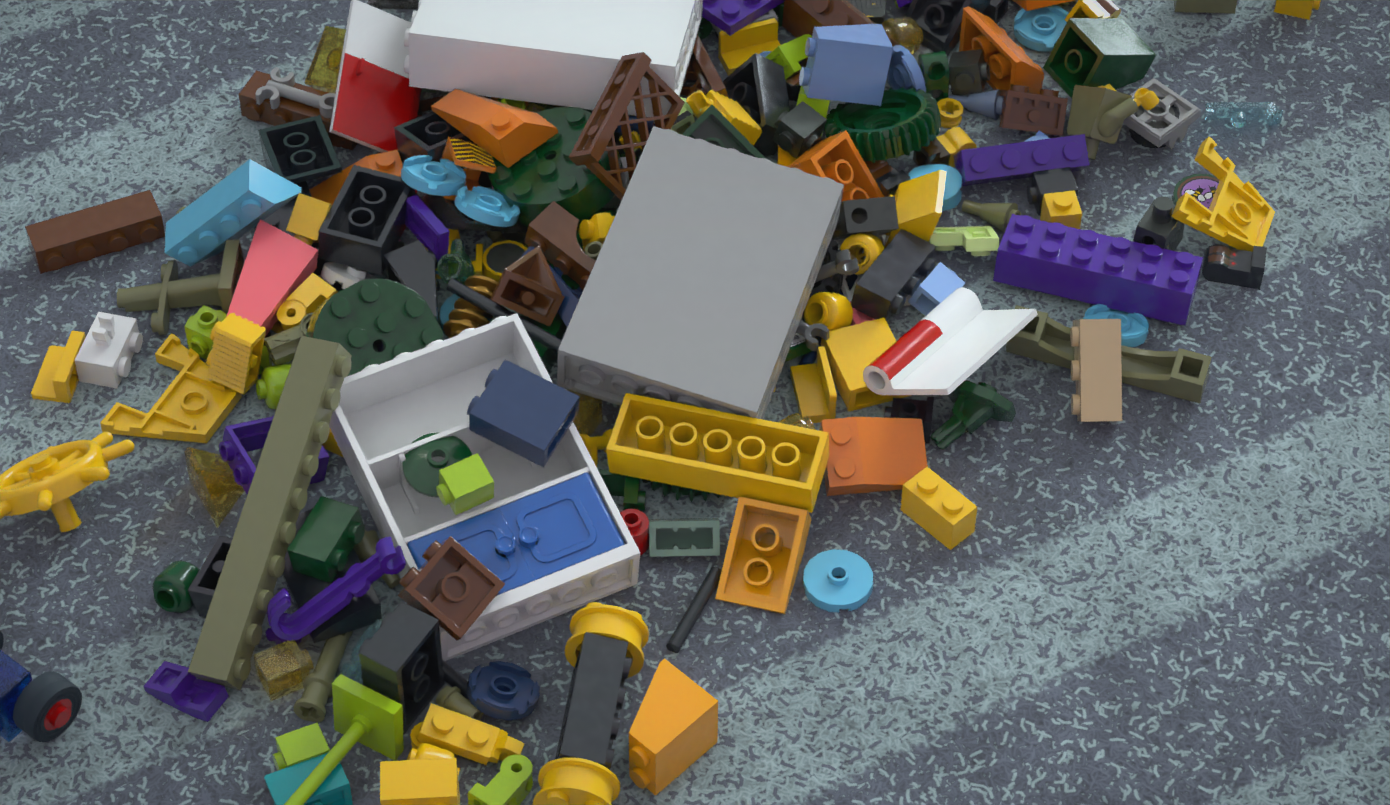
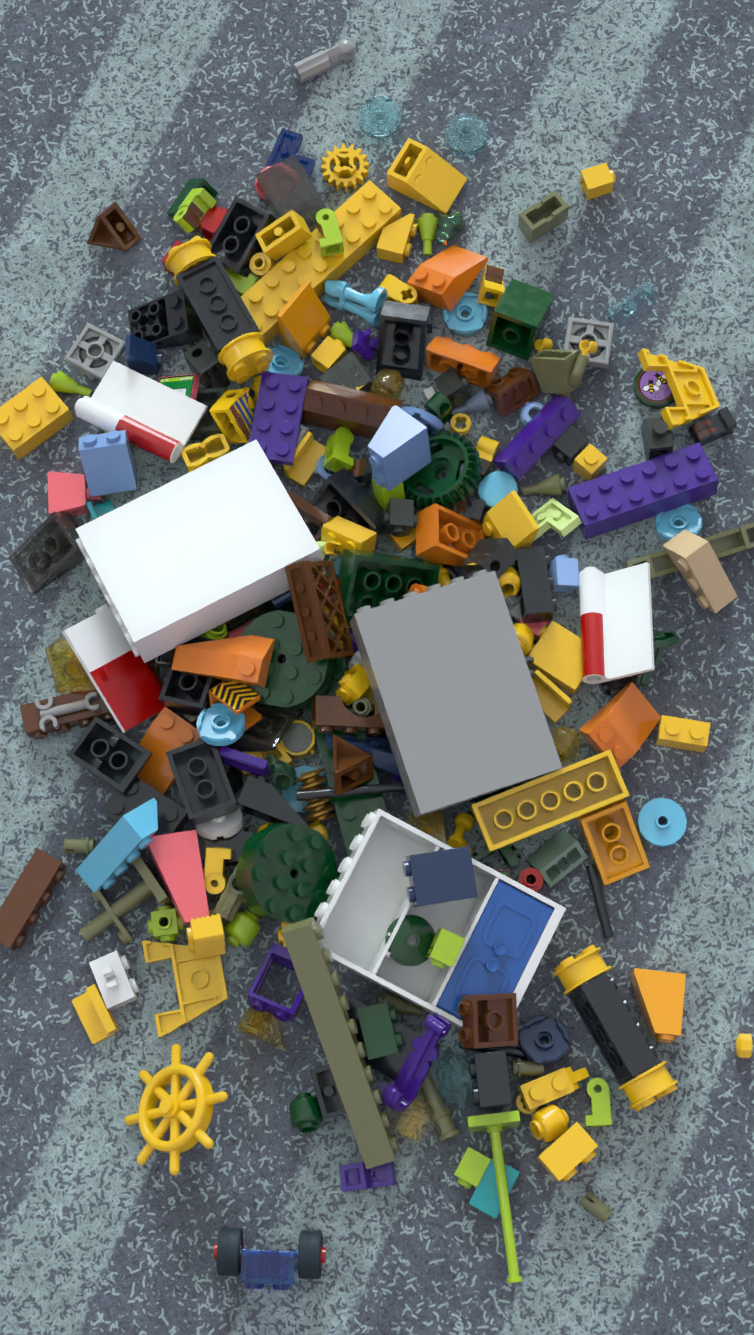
camera: 30 degrees left, 25 degrees up
(307, 218) = (171, 810): yellow brick -> none
(486, 206) = (272, 724): medium azure plate -> none

